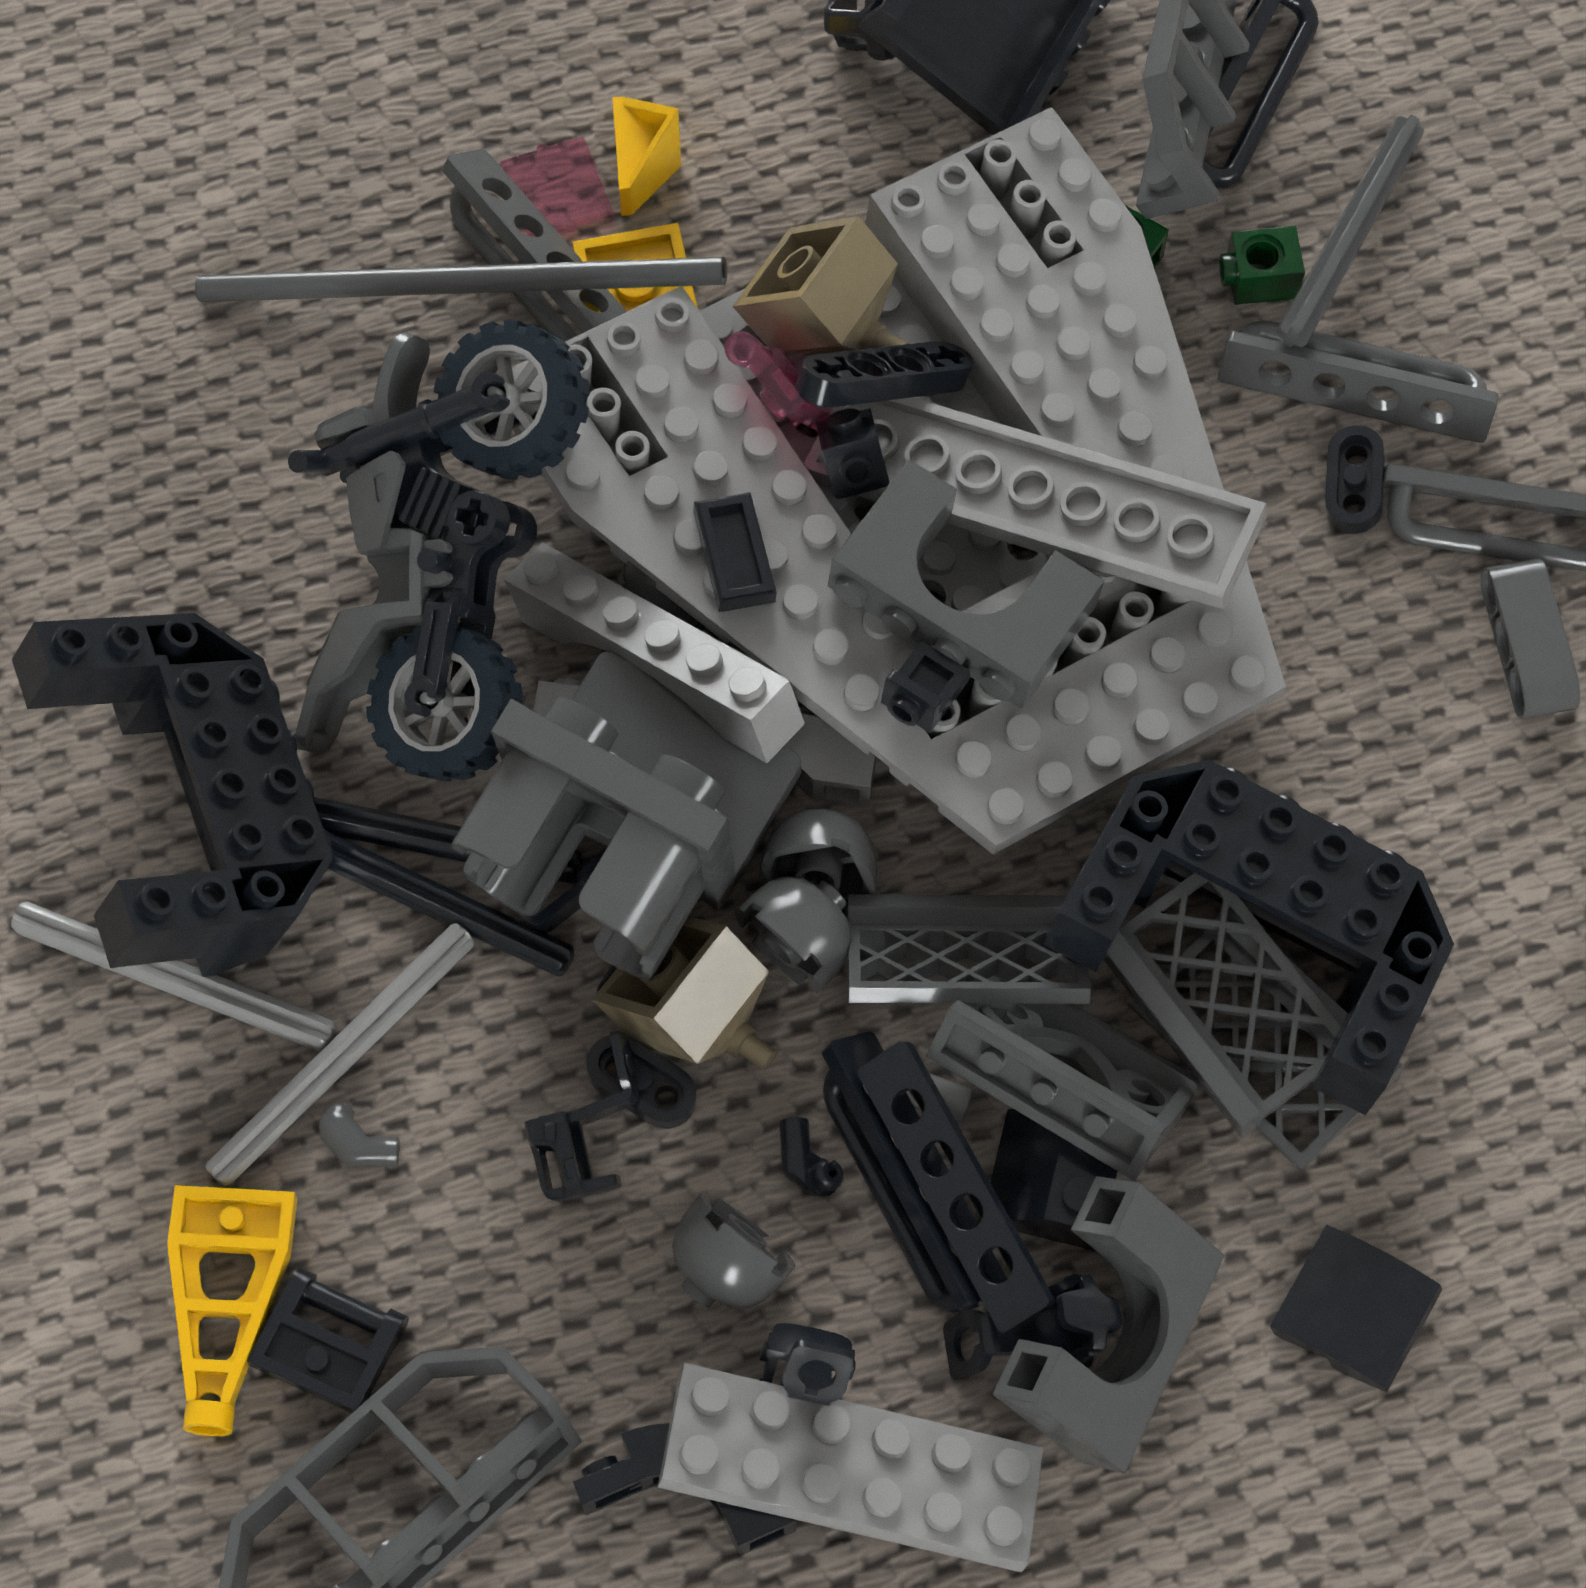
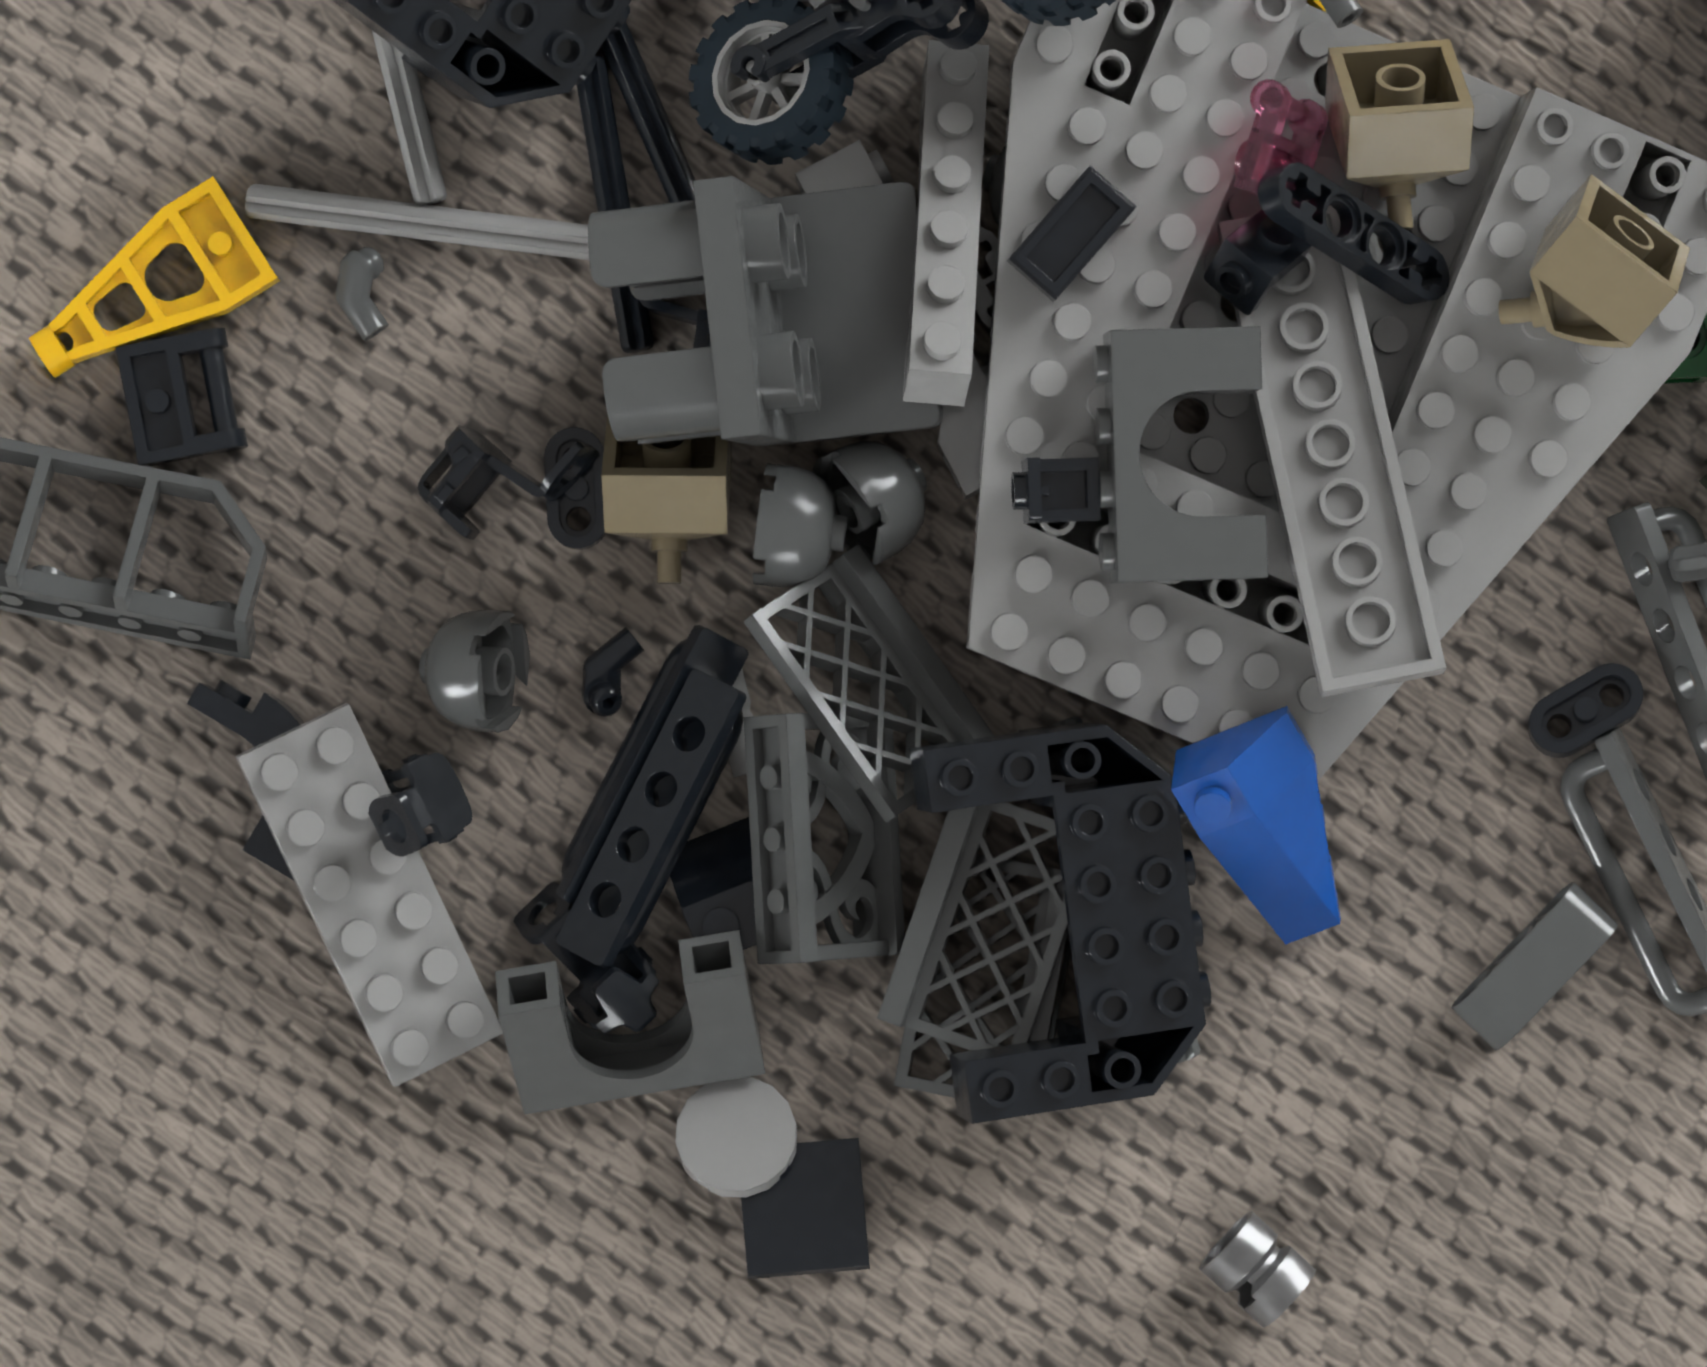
camera: 60 degrees right, 20 degrees up
(1043, 225) = (1600, 271): none -> dark tan piece
(1261, 1316) = (736, 1137): none -> light grey tile
(1280, 727) = (1263, 819): none -> blue wedge

